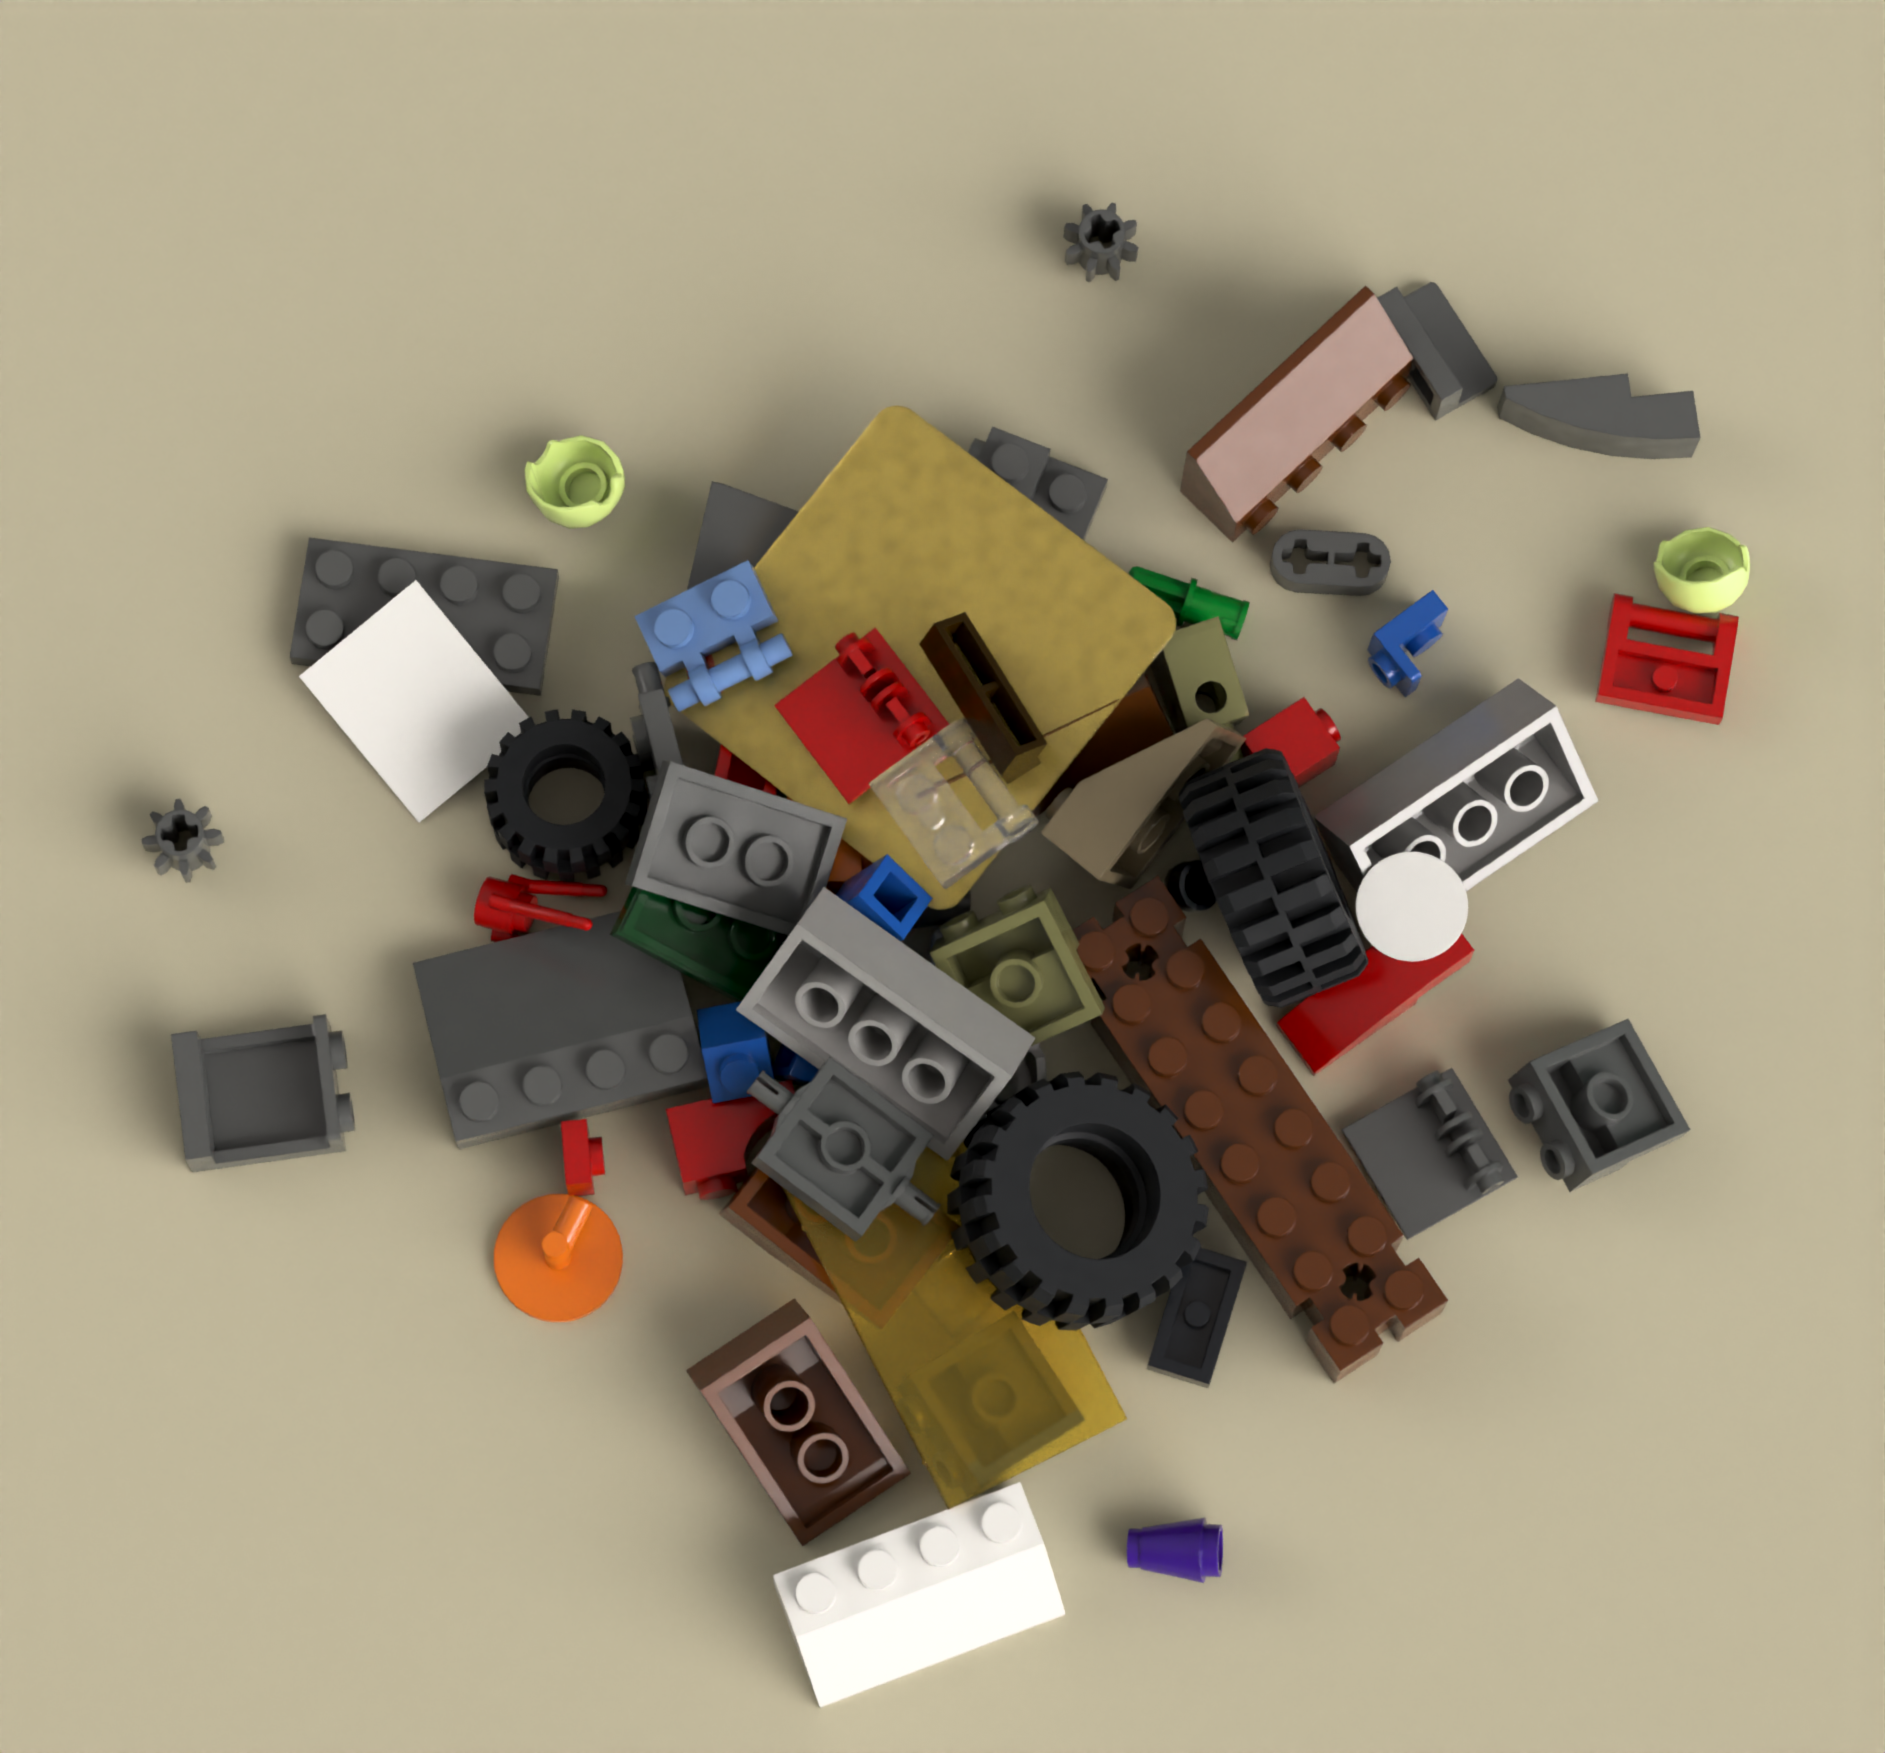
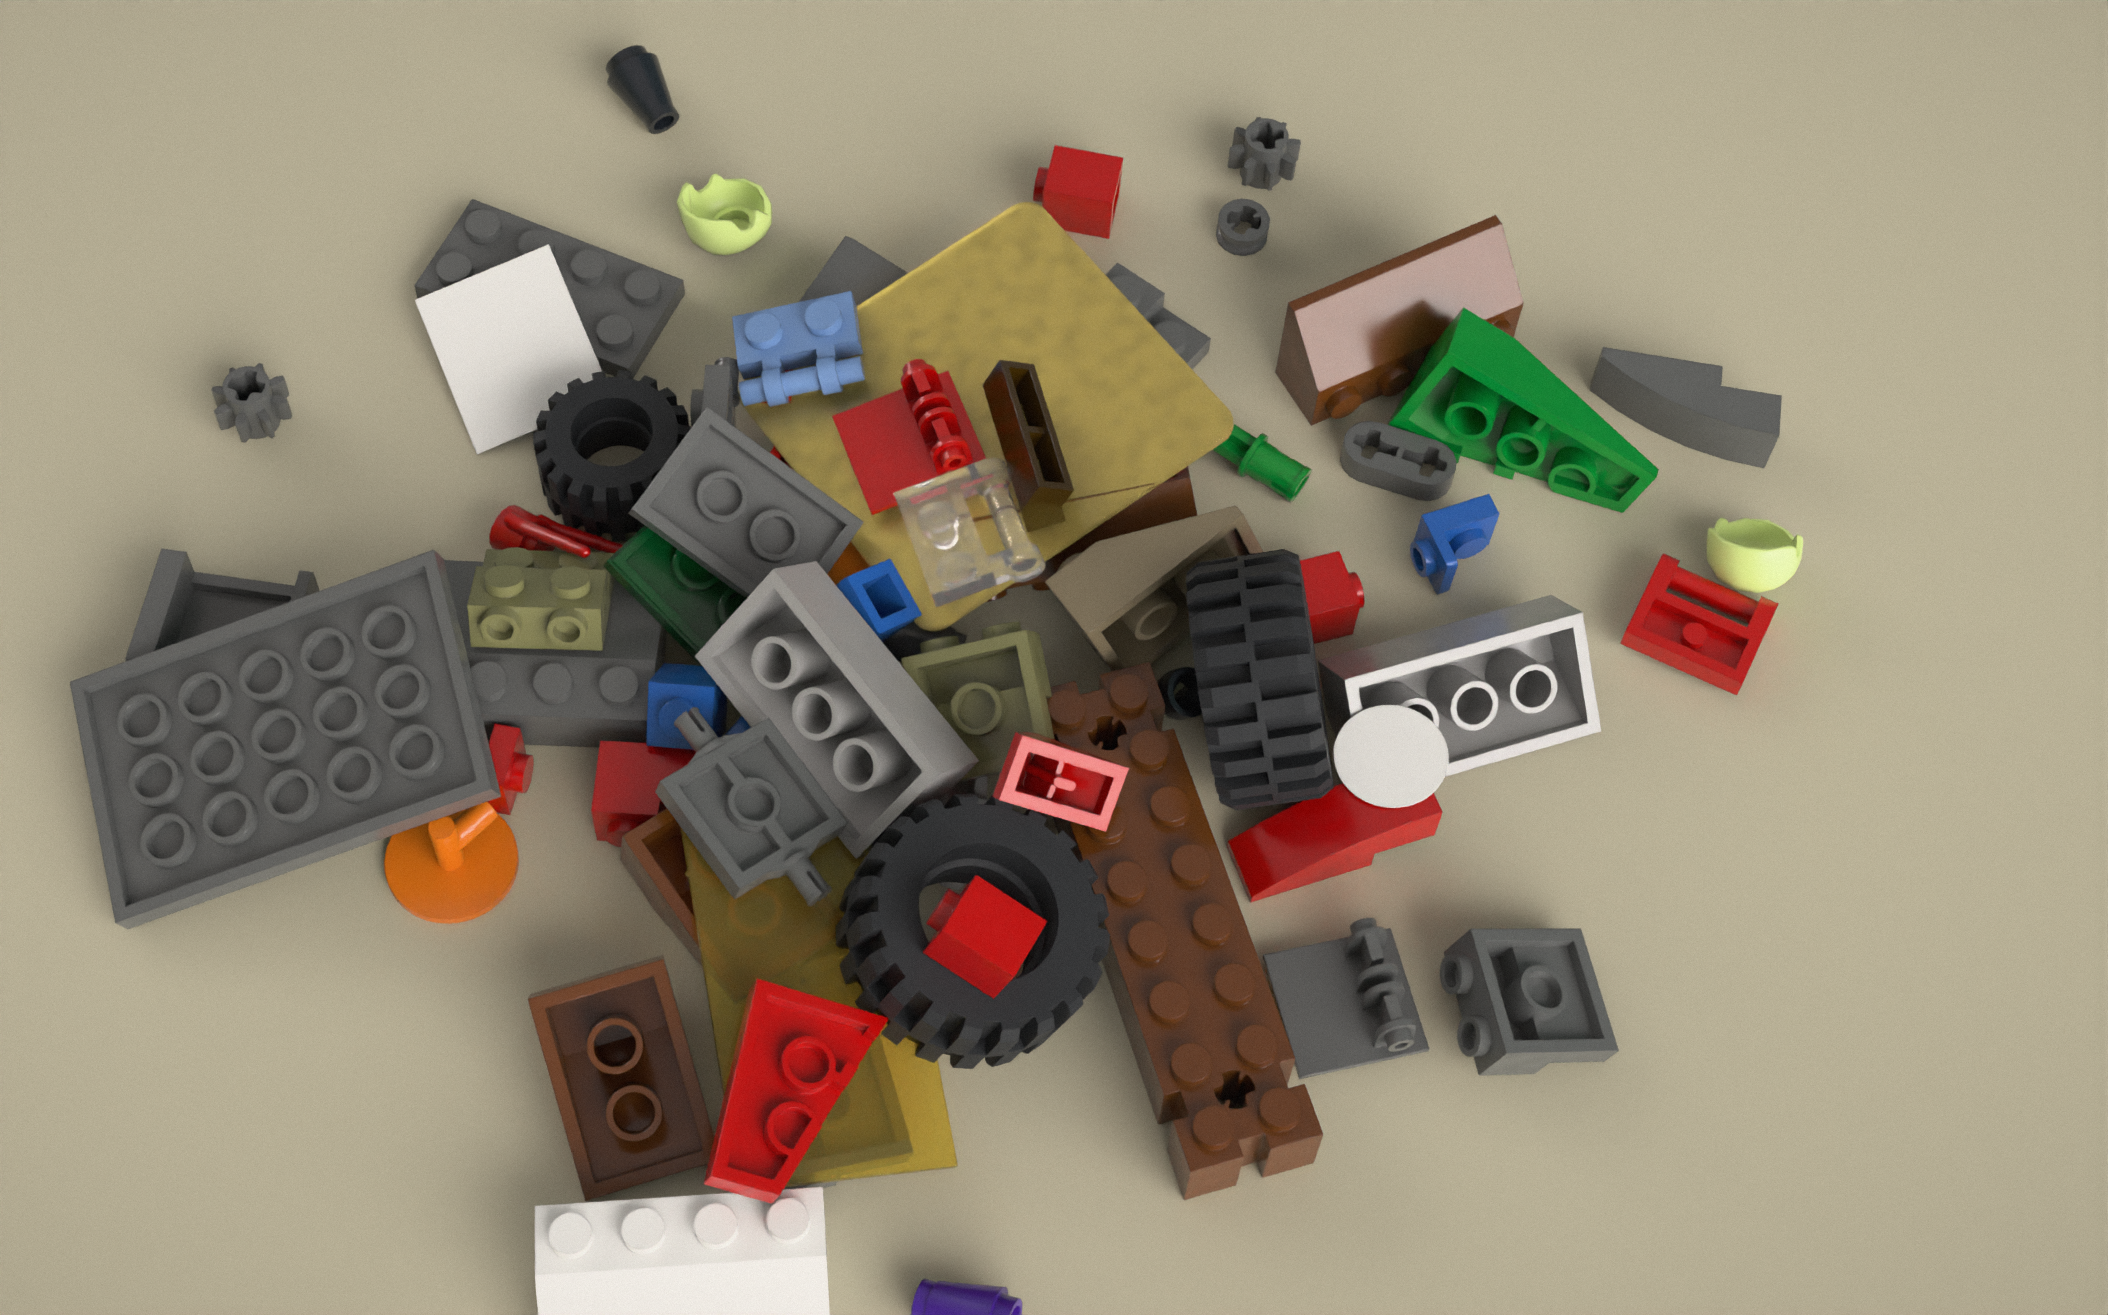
camera: 15 degrees right, 15 degrees down
(372, 1200) = (282, 740): none -> dark grey plate
(435, 351) = (641, 85): none -> black cone
(560, 982) = (540, 600): none -> olive plate
(925, 345) = (1080, 190): none -> red brick
(957, 1402) = (782, 1083): none -> red wing
(1086, 321) = (1231, 216): none -> dark grey bush
(1102, 1224) = (982, 935): none -> red brick
(1120, 1039) = (1060, 780): none -> slope
(1197, 1318) = (1061, 1088): black plate -> none
(1200, 663) = (1250, 481): olive torso -> none
(1414, 478) = (1510, 411): none -> green wedge
(1446, 360) = (1550, 317): dark grey panel -> none

